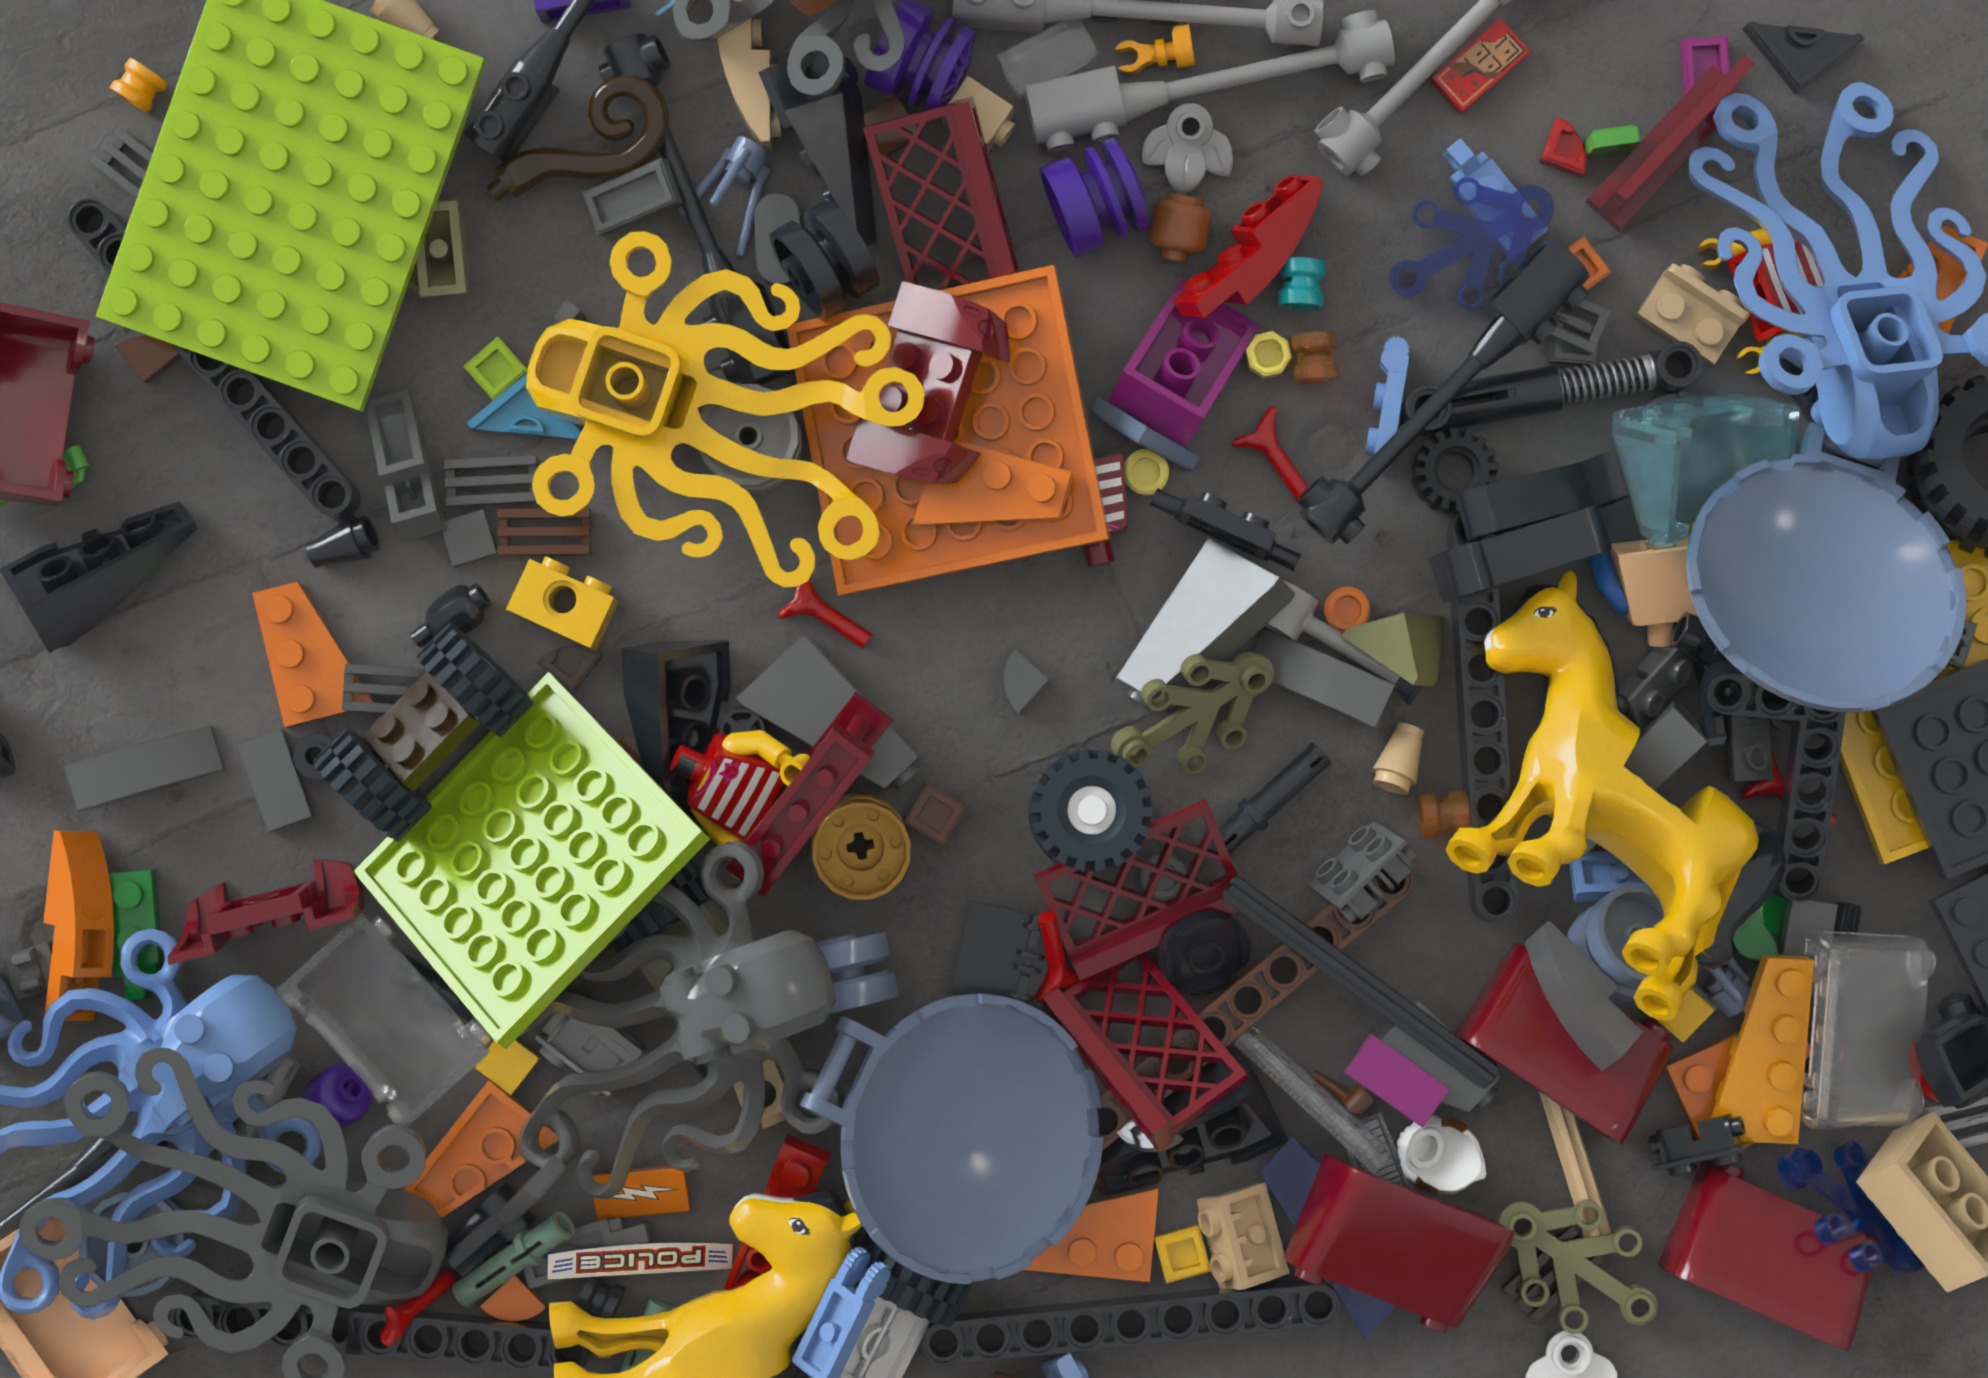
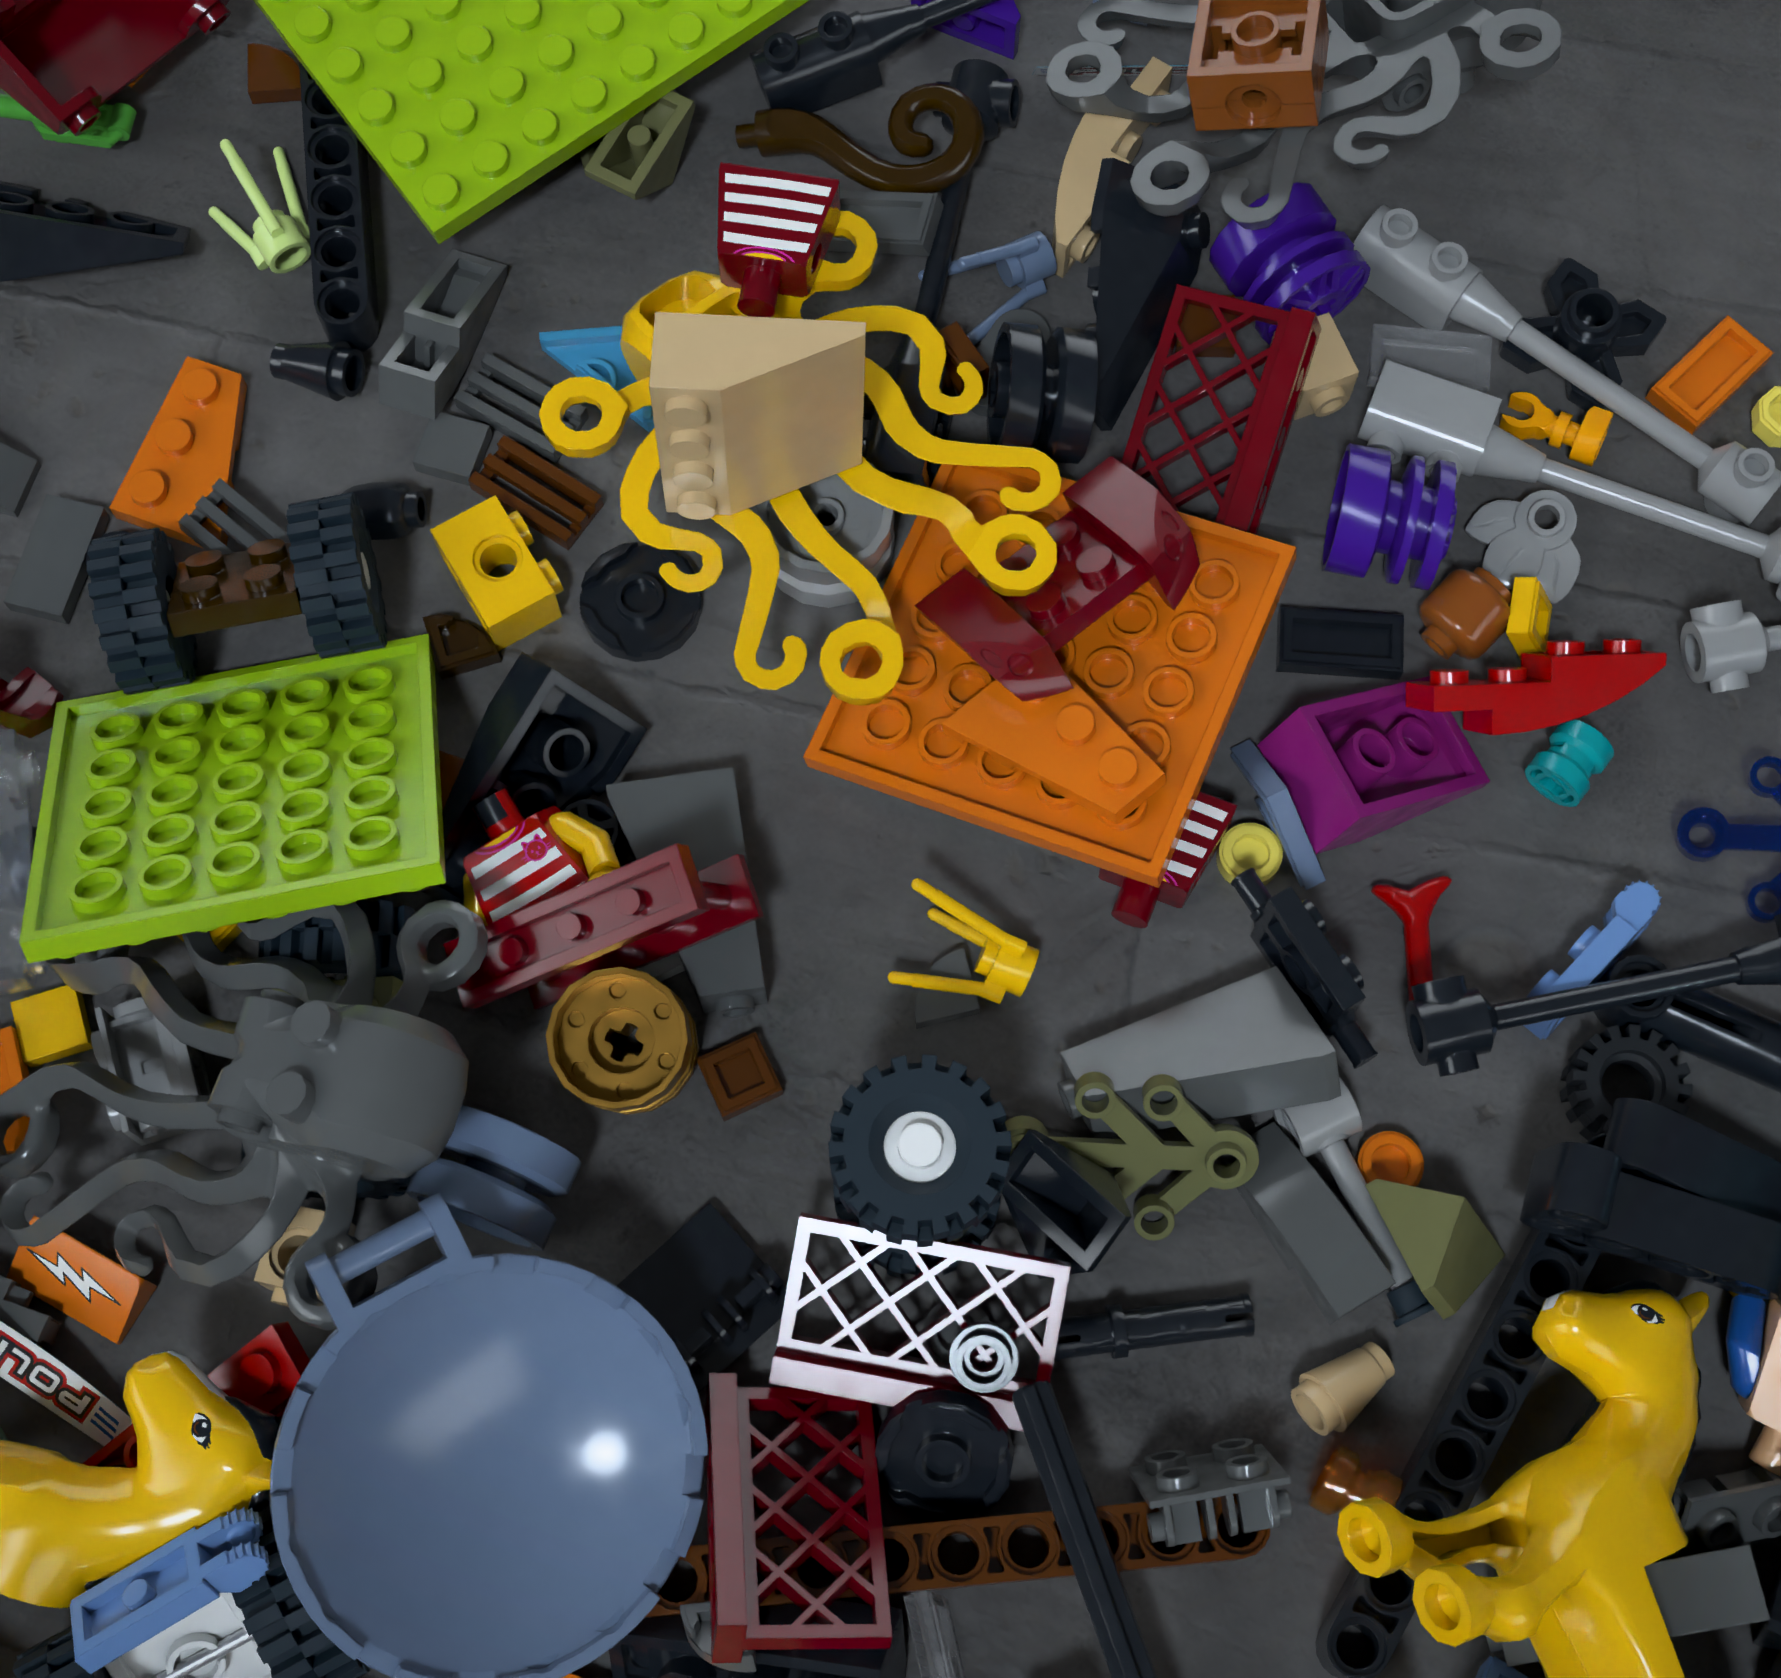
camera: 35 degrees right, 15 degrees down
(248, 472) = (278, 239): none -> yellowish green plant
(495, 368) = (608, 298): lime tile -> none
(600, 289) = (773, 233): none -> dark red torso
(659, 569) = (633, 608): none -> black tile
(684, 436) = (753, 407): none -> tan slope
(757, 268) = (960, 350): none -> reddish brown tile
(809, 603) = (766, 749): red piece -> none
(1042, 641) = (1003, 959): none -> yellow plant
(1059, 973) = (751, 1358): red piece -> none
(1113, 294) = (1340, 643): none -> black tile
(1180, 766) = (1063, 1203): none -> black slope
(1197, 896) = (979, 1377): none -> plate
(1220, 203) = (1529, 616): none -> yellow tile
(1268, 355) = (1479, 816): light yellow tile -> none
(1314, 357) = (1534, 851): clear orange wheel -> none

